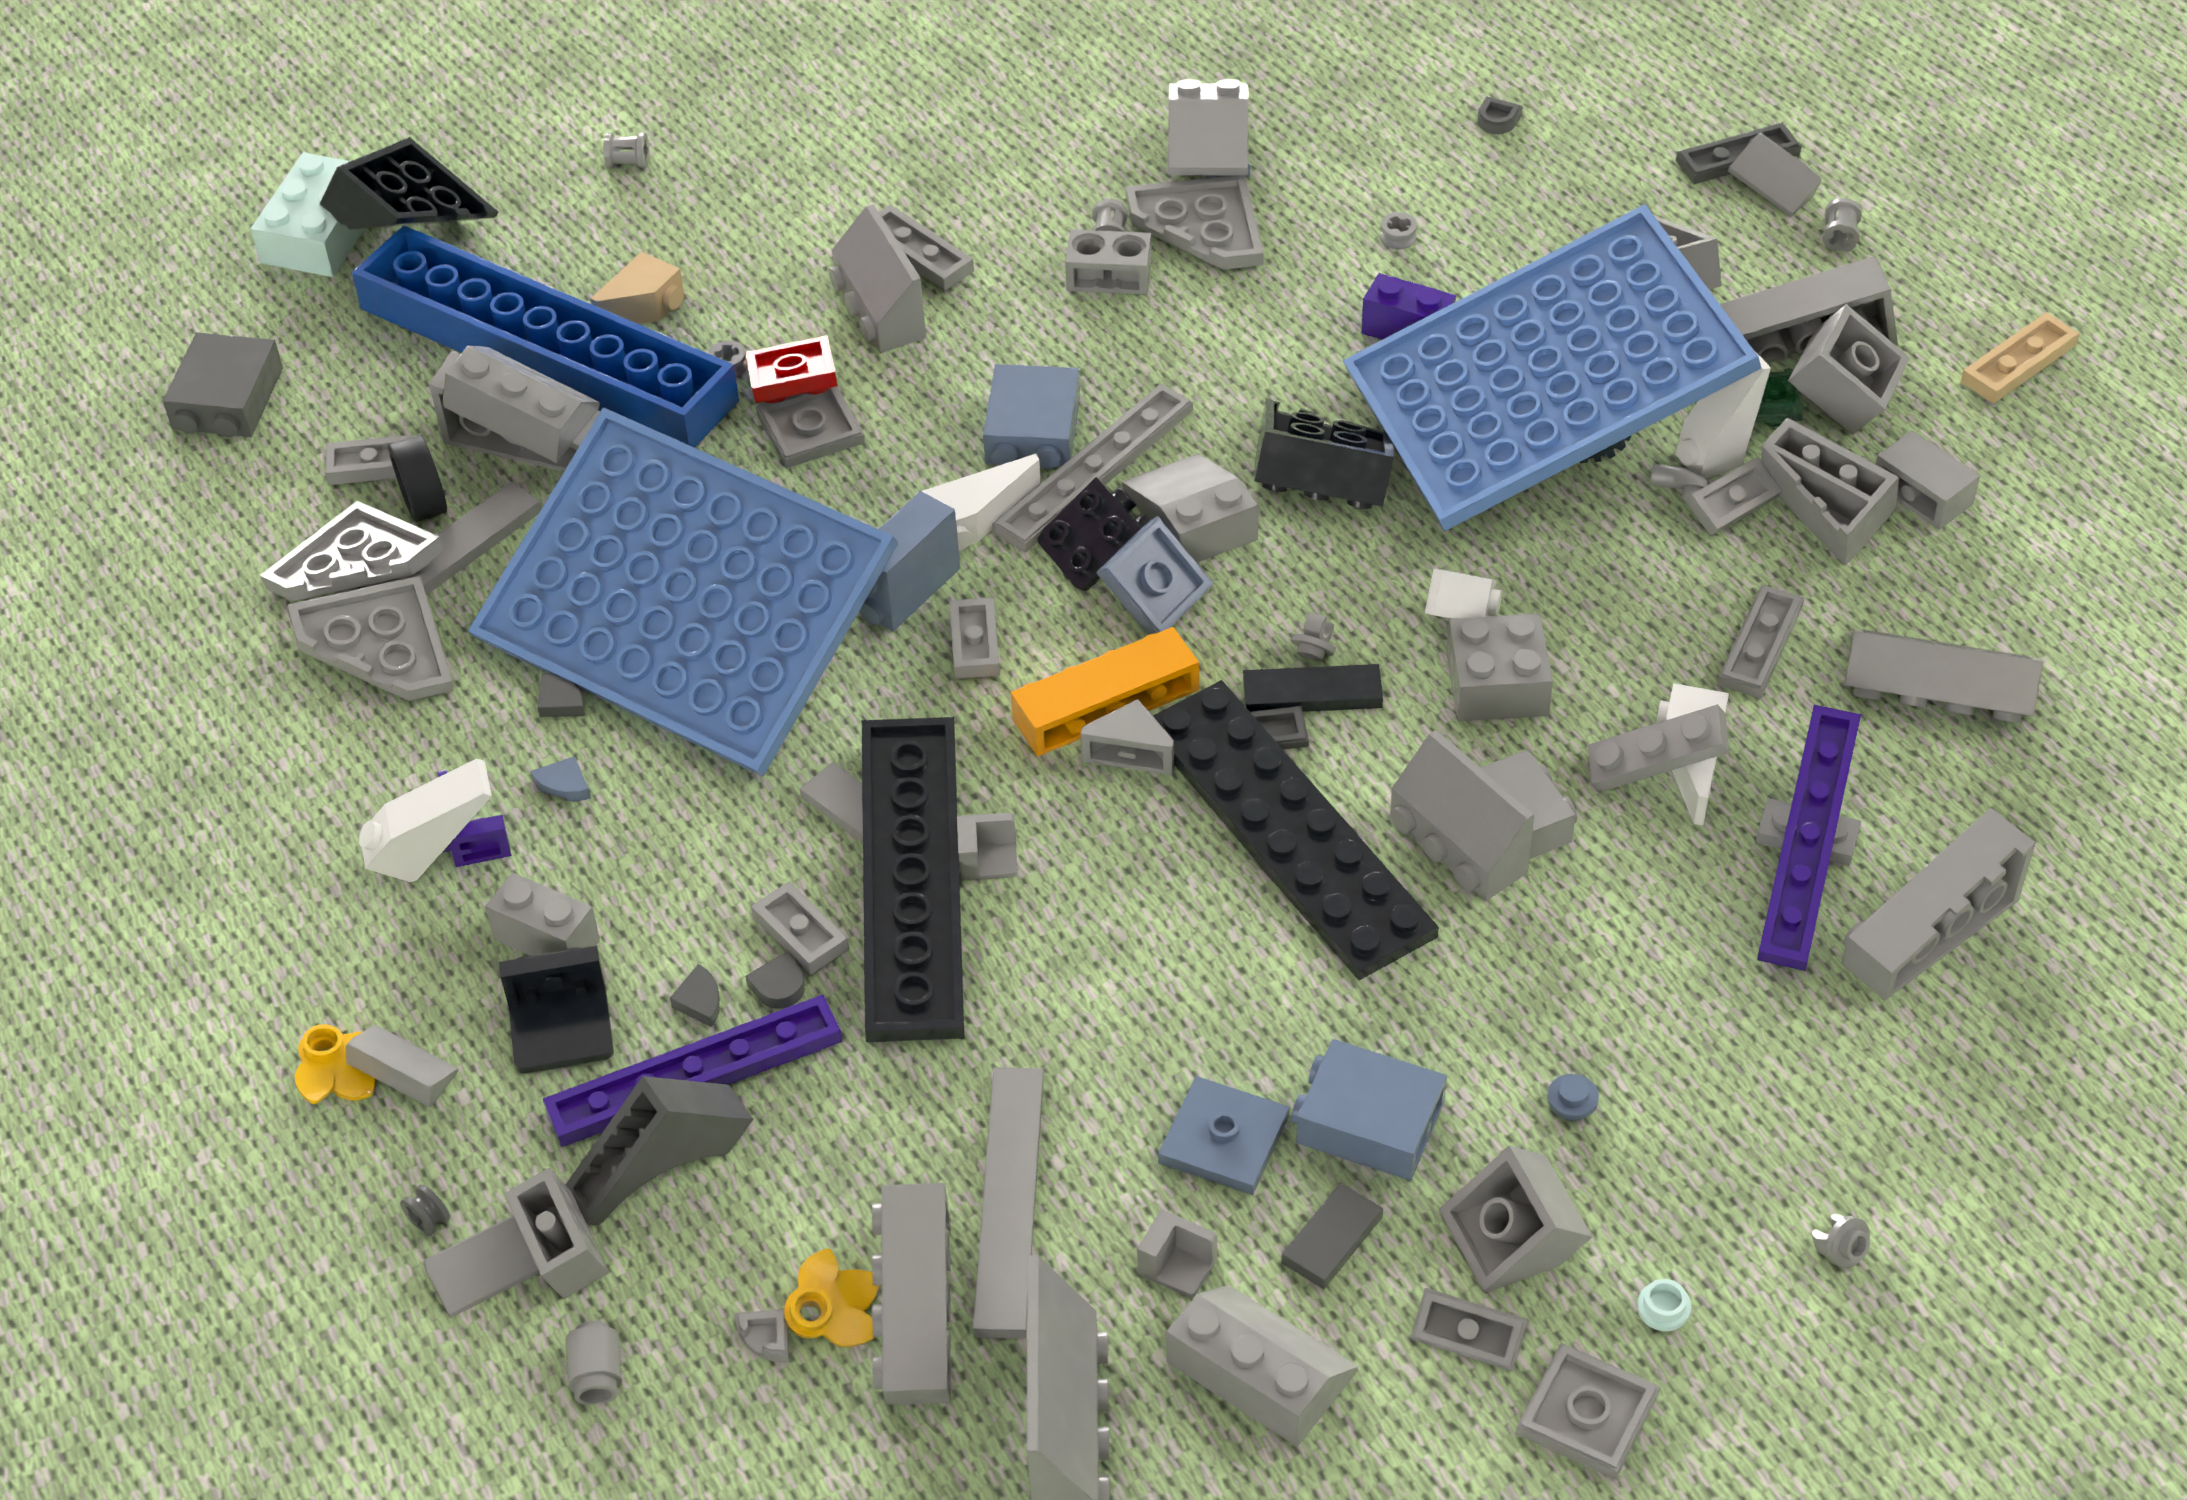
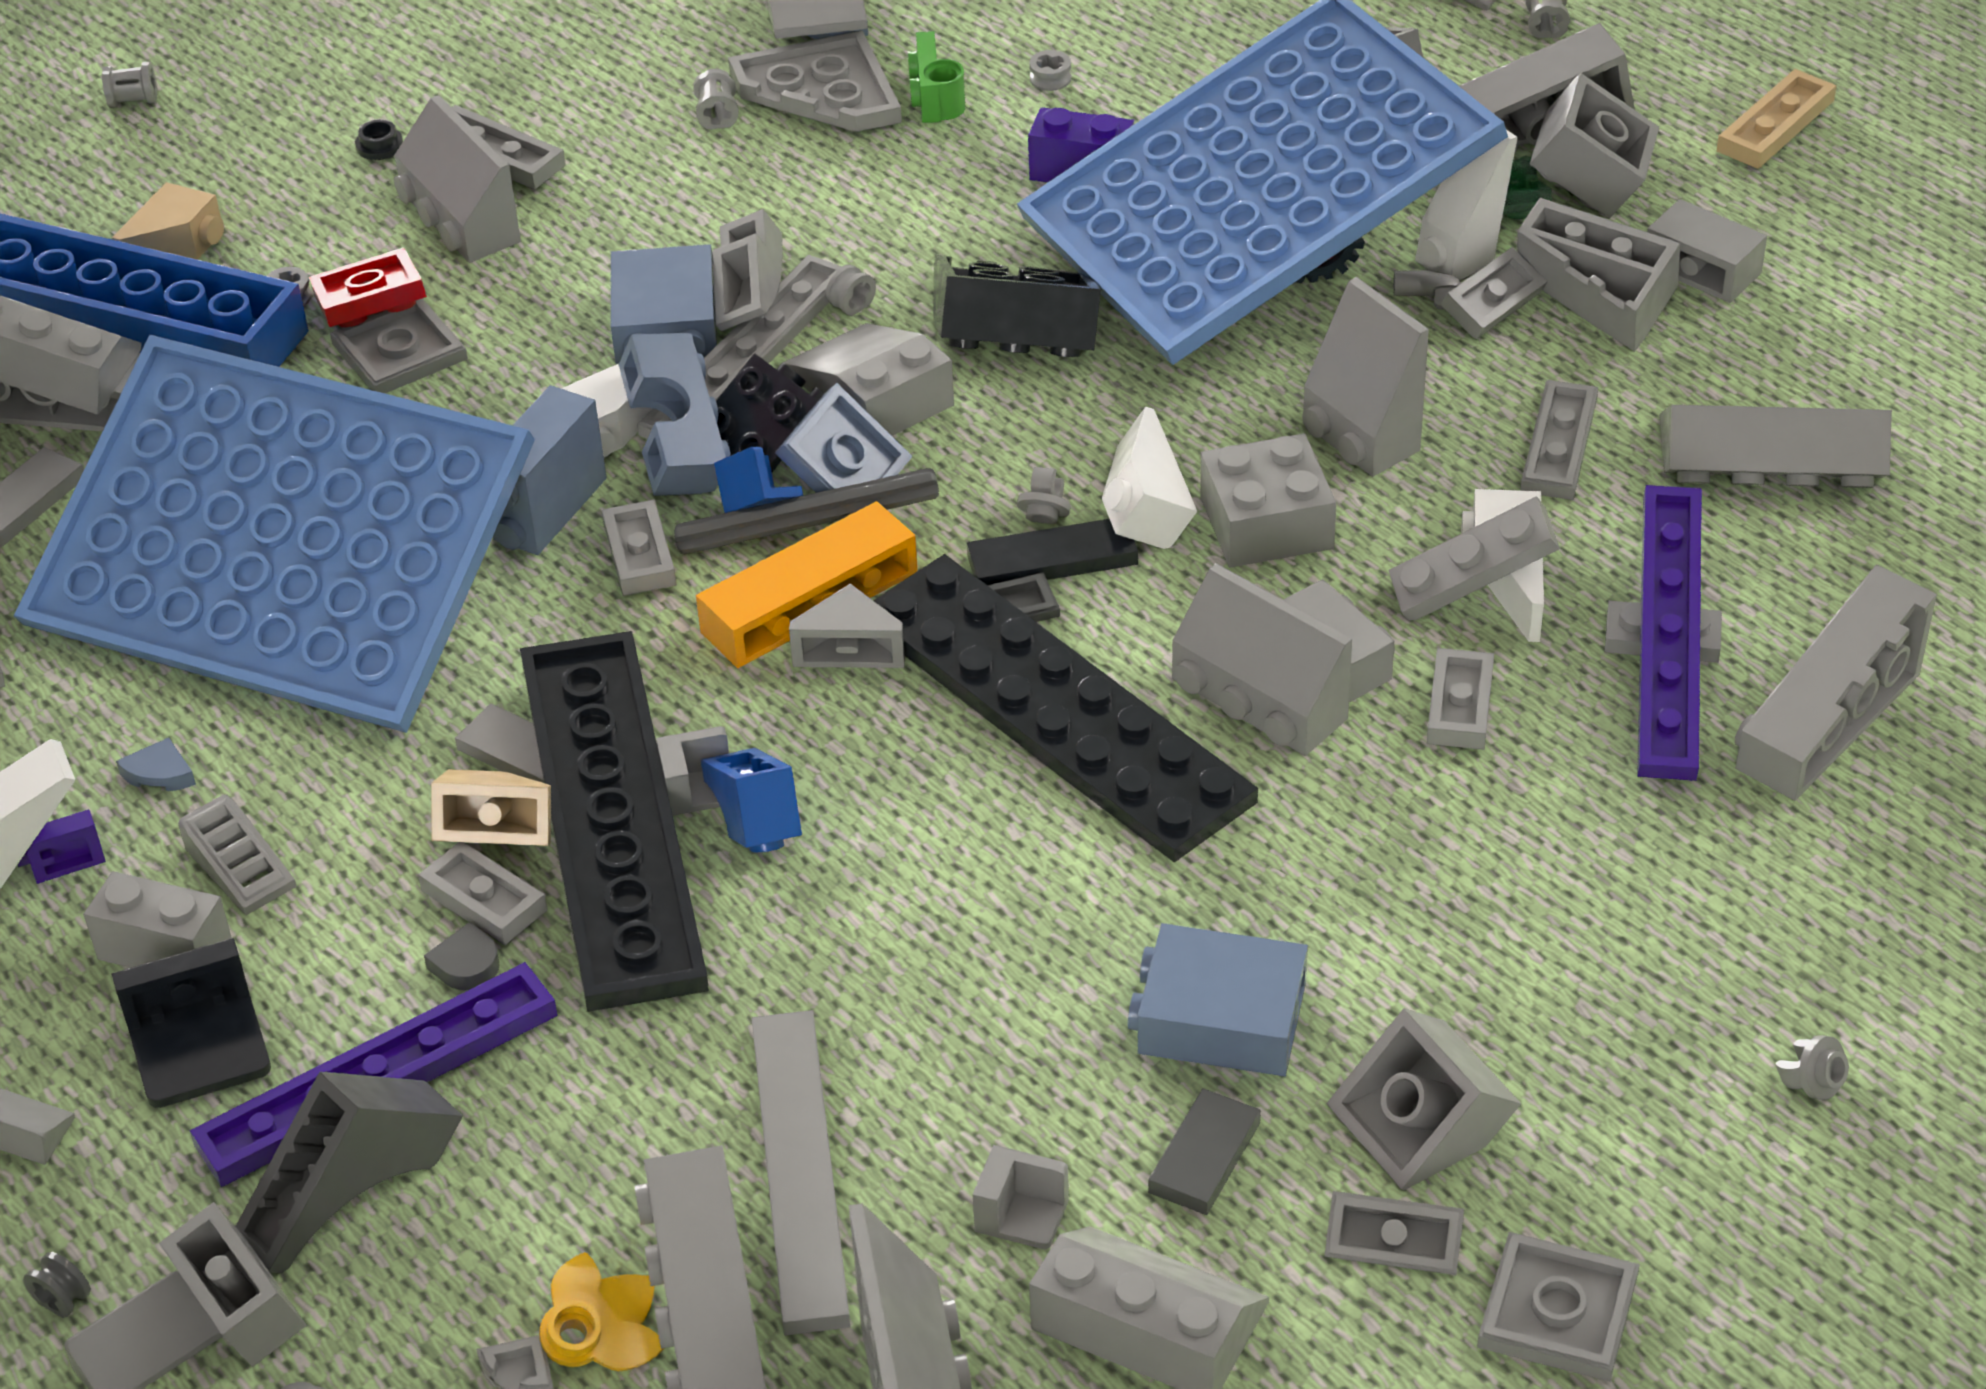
camera: 10 degrees left, 5 degrees down
(559, 697) = (139, 676): dark grey tile -> none
(603, 840) = (219, 825): none -> light grey slope
(698, 996) = (367, 988): dark grey tile -> none
(815, 858) = (490, 808): none -> tan slope
(822, 228) = (378, 140): none -> black plate
(1023, 491) = (670, 377): none -> sand blue arch
(1027, 877) = (754, 798): none -> blue arch
(1072, 595) = (748, 482): none -> blue panel
(1105, 393) = (746, 269): none -> light grey slope
(1108, 262) = (722, 136): light grey brick -> none
(1115, 625) = (804, 511): none -> dark grey axle
(1190, 422) = (850, 289): none -> light grey bush
(1224, 1135) = (1048, 1056): sand blue plate -> none
(1301, 233) = (935, 82): none -> bright green plate
(1399, 643) = (1146, 488): none -> white slope
(1462, 595) = (1208, 425): white slope -> none
(1573, 1097) = (1458, 954): sand blue plate -> none
(1602, 574) = (1369, 381): none -> light grey slope
(1623, 870) = (1460, 698): none -> light grey plate
(1664, 1305) = (1622, 1171): light aqua plate -> none

